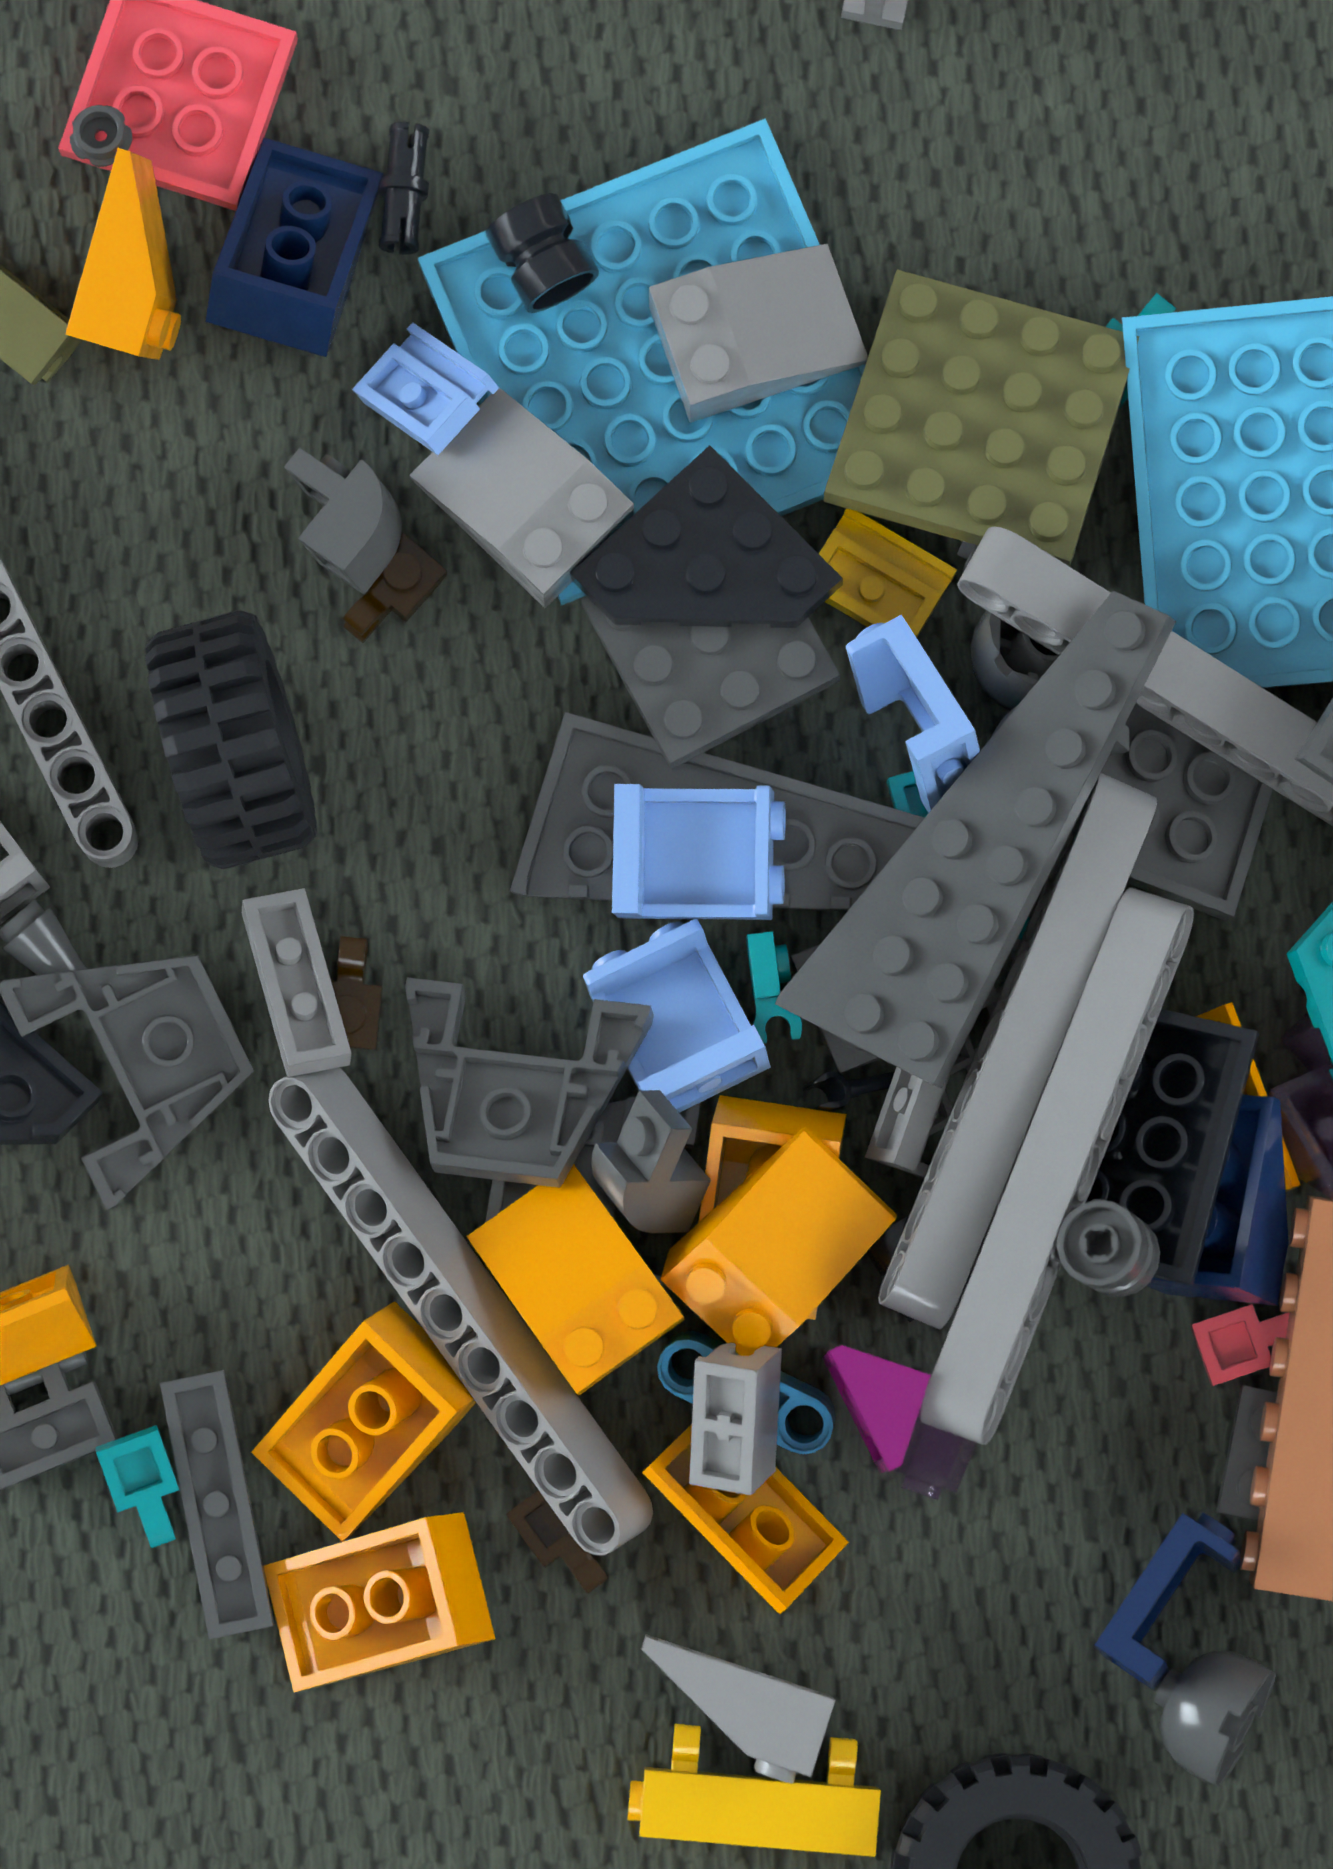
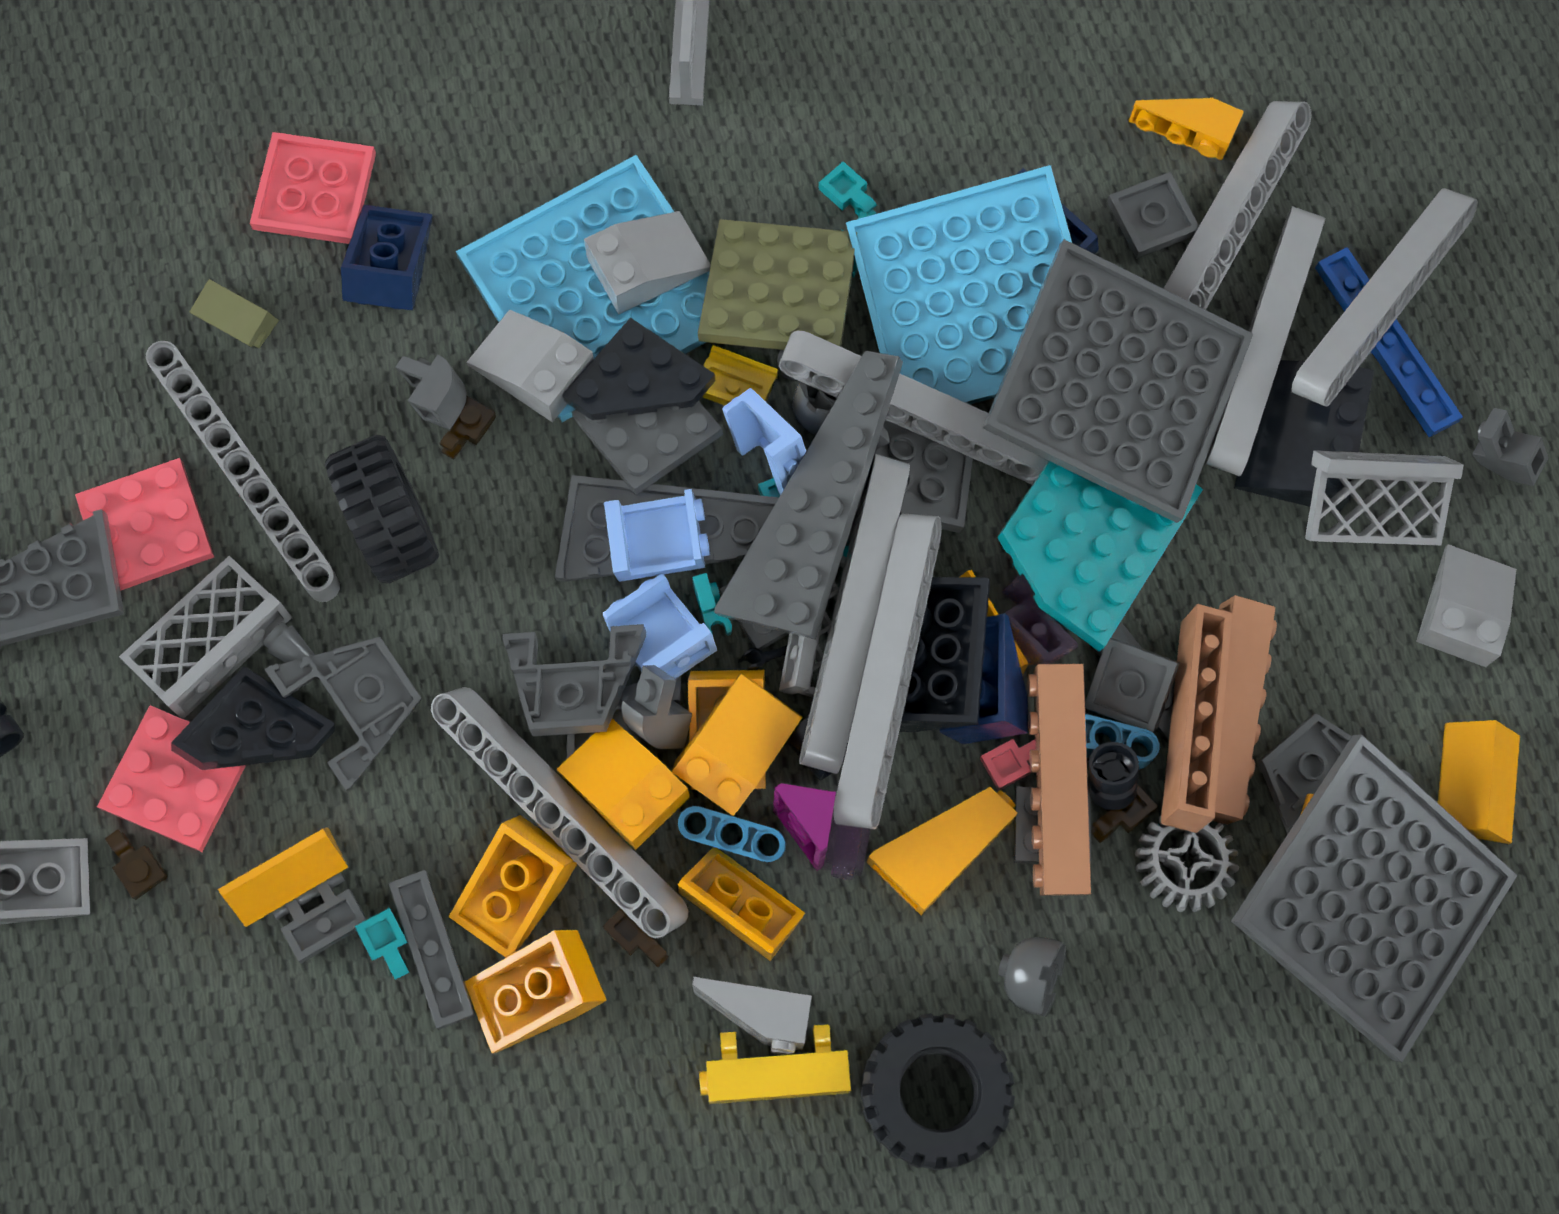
camera: 10 degrees left, 10 degrees down
(98, 119) = (267, 203): dark grey plate -> none
(127, 278) = (292, 281): light orange slope -> none
(296, 982) = (439, 644): light grey plate -> none
(356, 1001) = (471, 657): dark brown plate -> none
(404, 188) = (443, 218): black pin -> none
(425, 389) = (469, 316): light blue plate -> none
(537, 243) = (523, 234): black wheel -> none
(735, 1419) = (727, 843): light grey hinge -> none
(1092, 1478) = (940, 850): none -> light orange slope
(1108, 1248) = (926, 717): dark grey wheel -> none
(1135, 238) = (847, 188): none -> teal plate
(1154, 1589) = (975, 937): dark blue panel -> none

